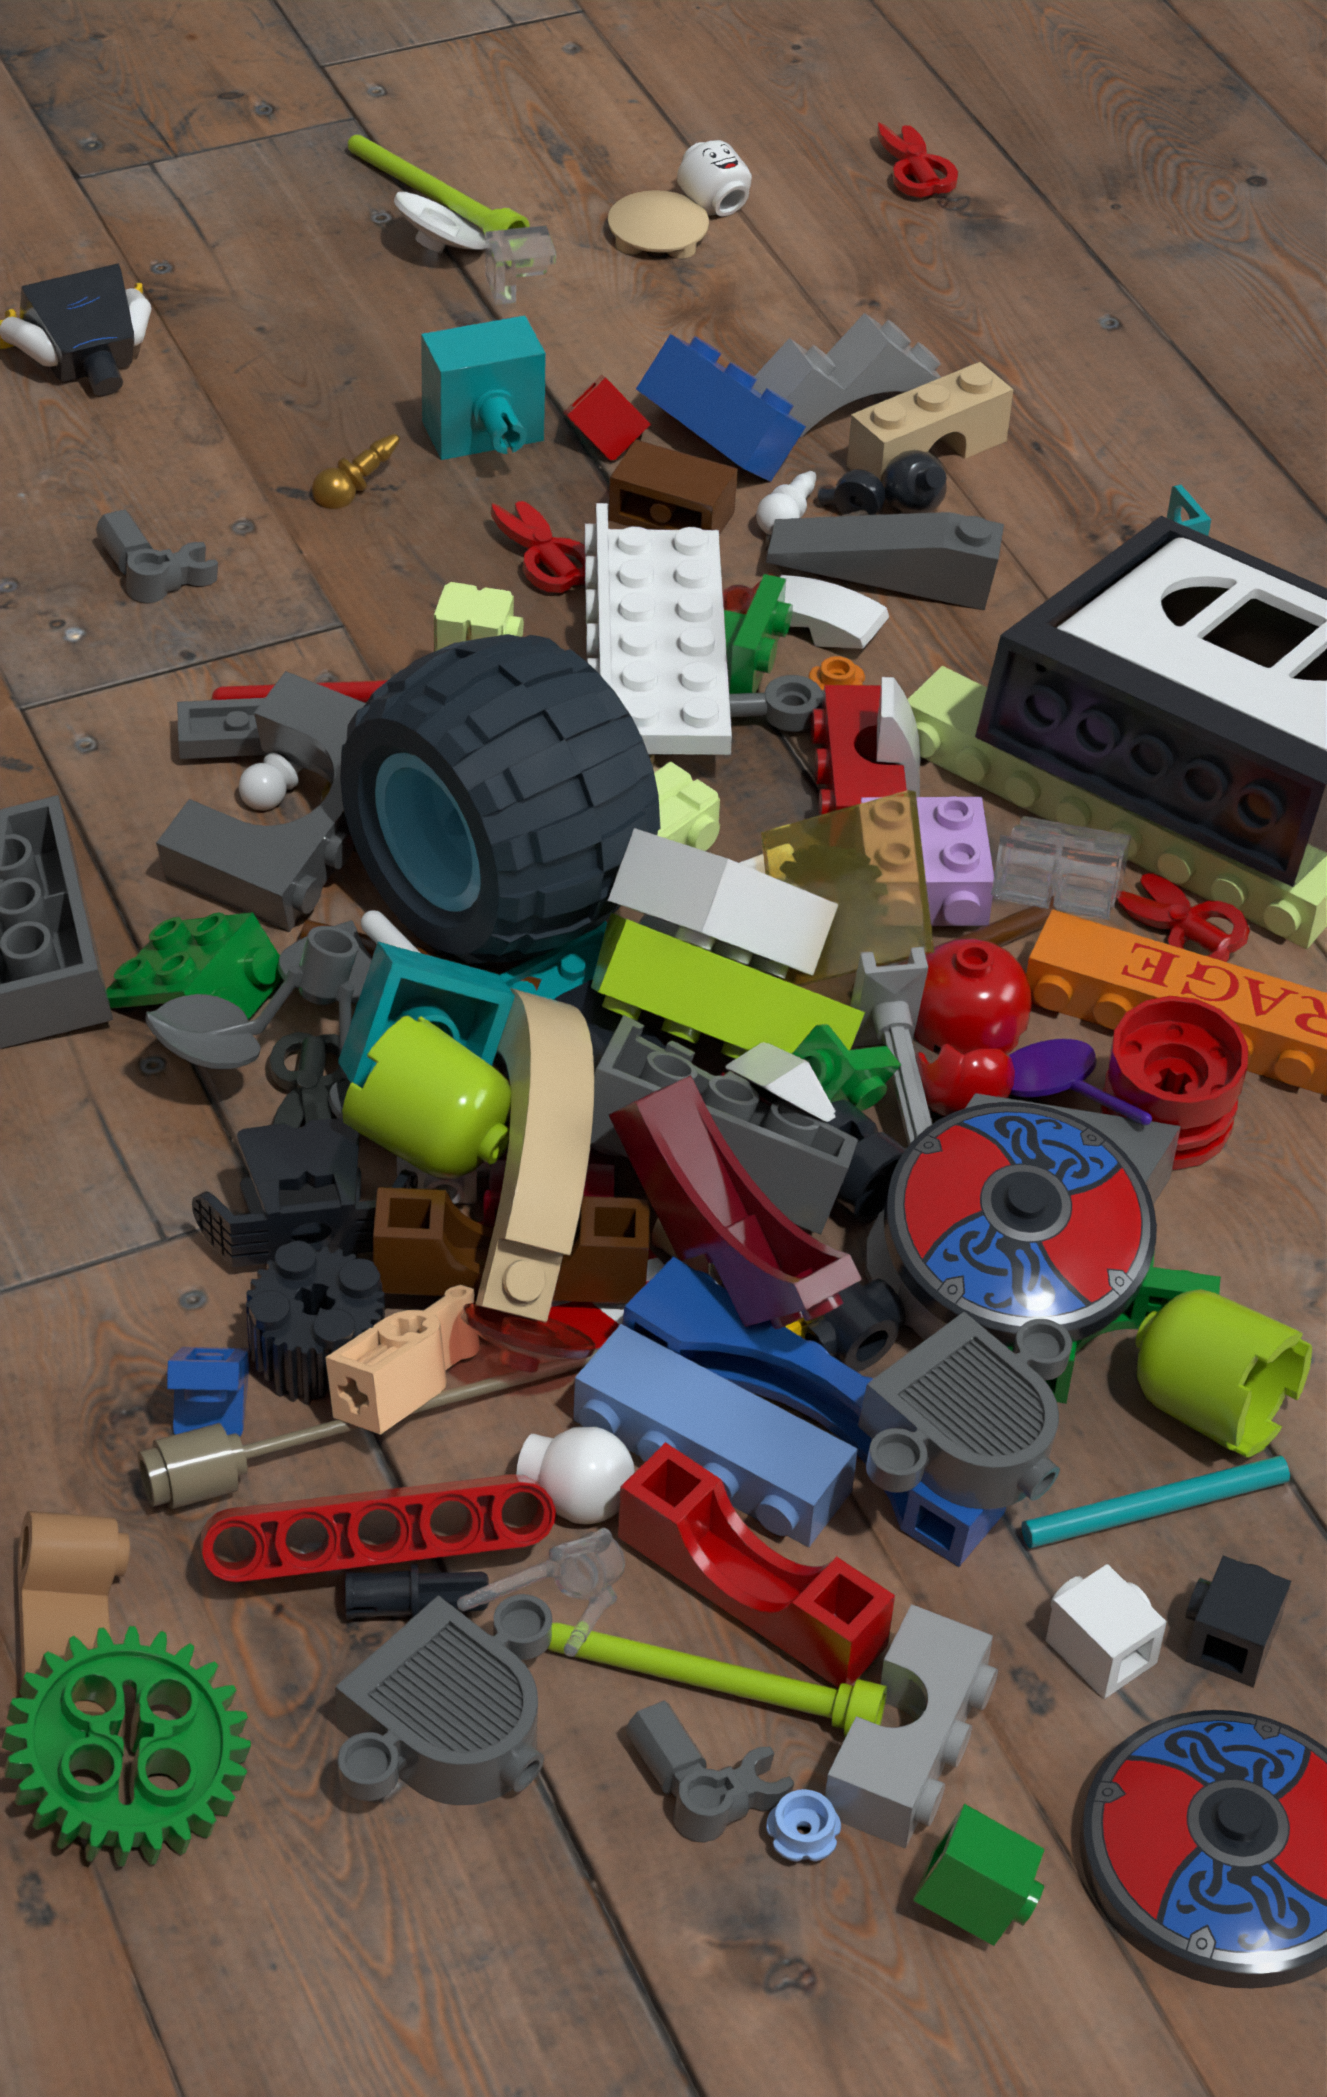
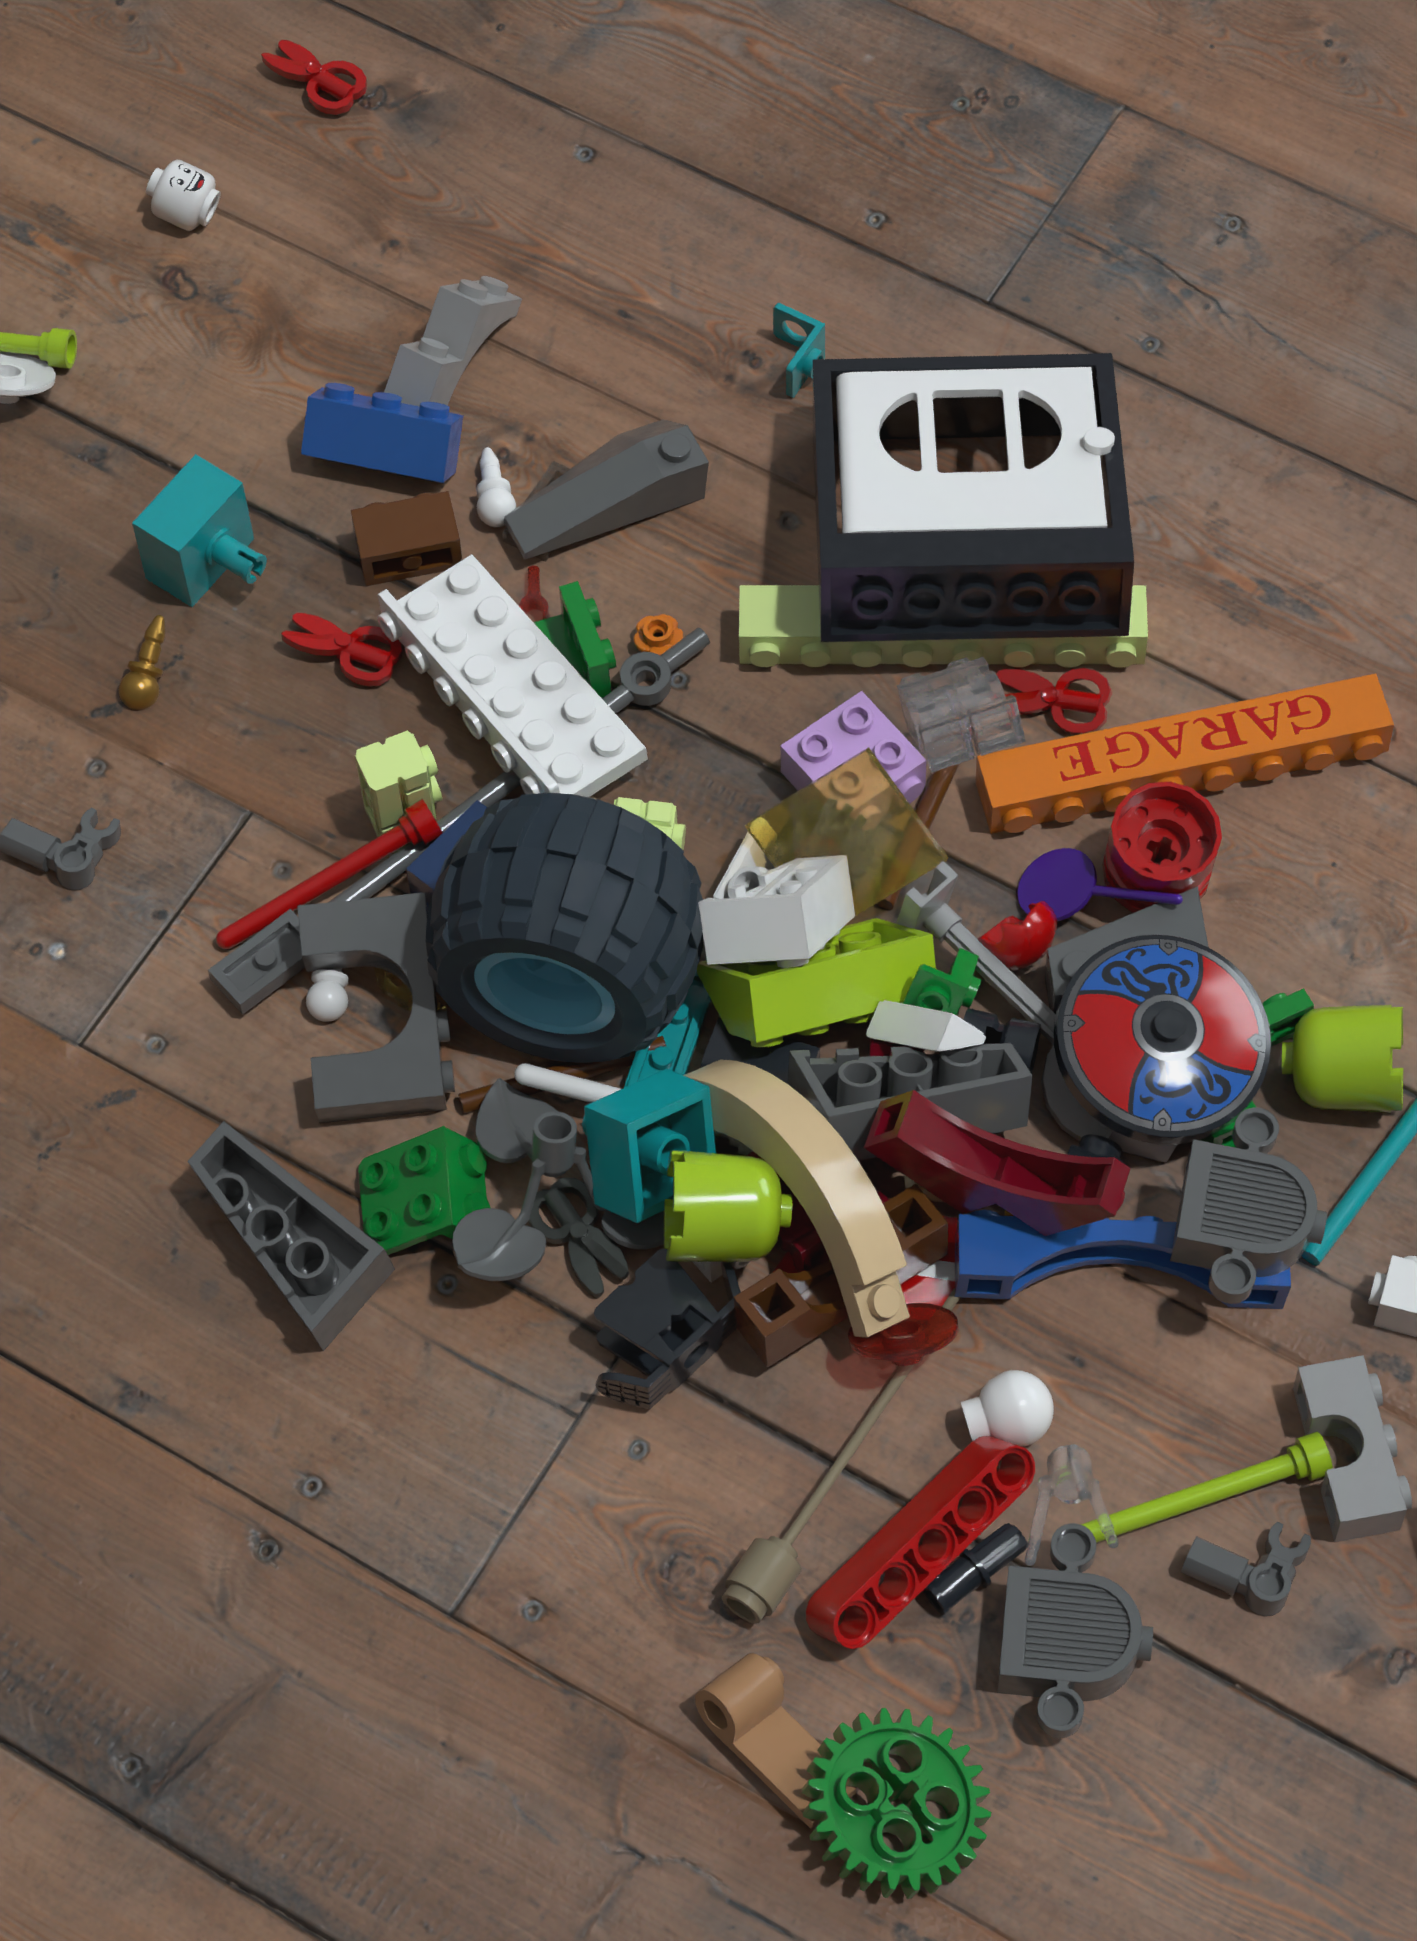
camera: 30 degrees left, 15 degrees up
(209, 1387) = (717, 1508): blue slope -> none
(307, 1310) = (749, 1389): black brick -> none
(400, 1362) = (838, 1413): light nougat piece -> none
(514, 255) = (95, 376): clear panel -> none
(607, 418) = (295, 493): red panel -> none
(658, 223) = (168, 264): tan dish -> none
(766, 1457) = (1070, 1323): medium blue brick -> none
(807, 1810) = (1347, 1551): light blue plate -> none
(817, 1614) = (1232, 1411): red arch -> none
(833, 612) = (606, 576): white slope -> none
(849, 749) = (709, 679): red arch -> none
(855, 492) = (538, 452): black piece -> none
(898, 733) = (762, 677): white slope -> none
(914, 482) = (577, 415): black piece -> none
(962, 409) = (554, 332): tan arch -> none
(973, 998) = (979, 855): red cylinder -> none

